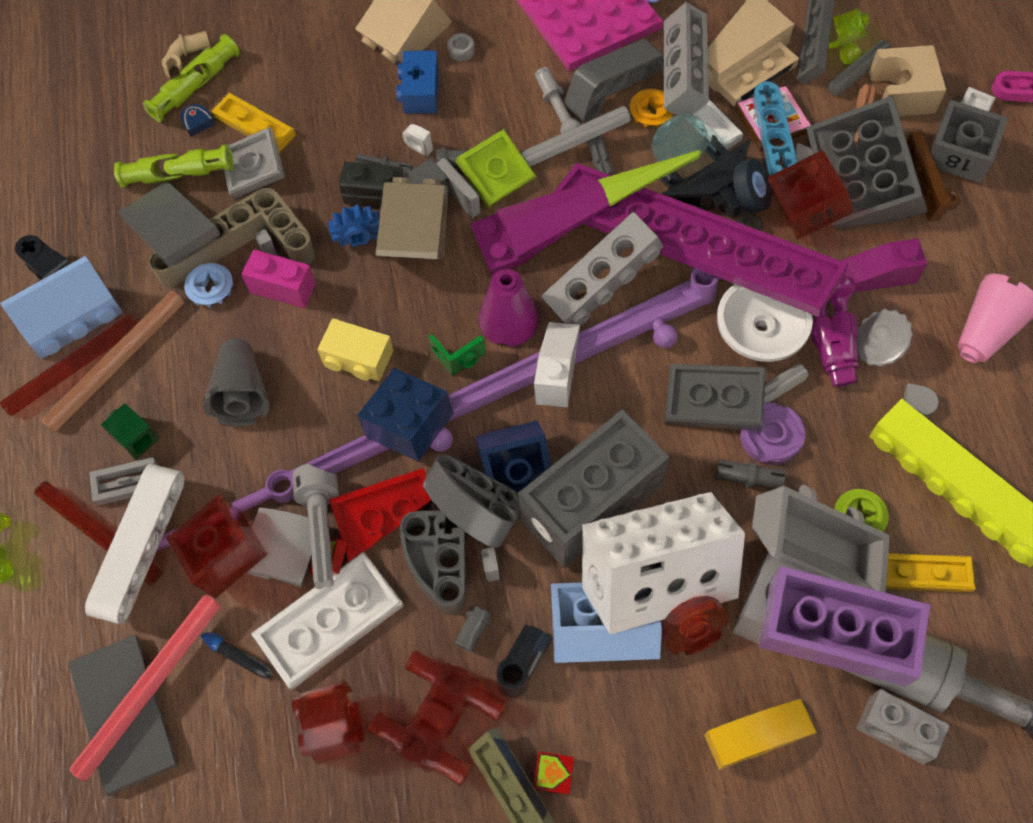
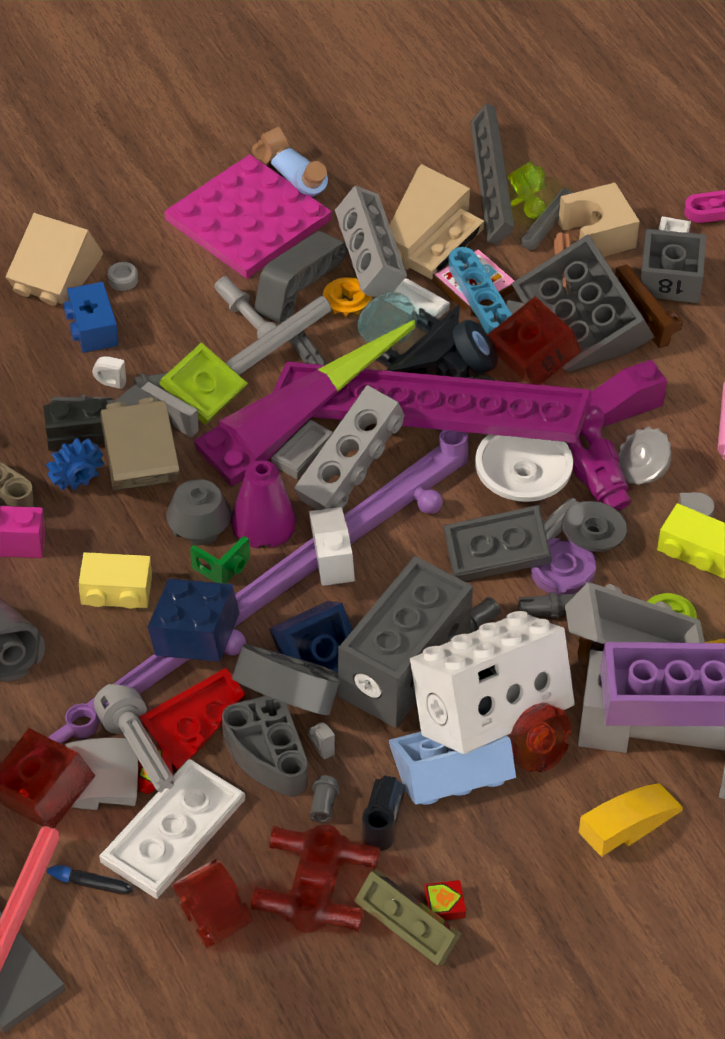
camera: 20 degrees left, 15 degrees down
(451, 298) = (198, 512): none -> dark grey cone
(565, 253) = (301, 449): none -> light grey tile
(680, 467) = (483, 613): none -> dark grey pin
(819, 391) = (594, 526): none -> dark grey dish

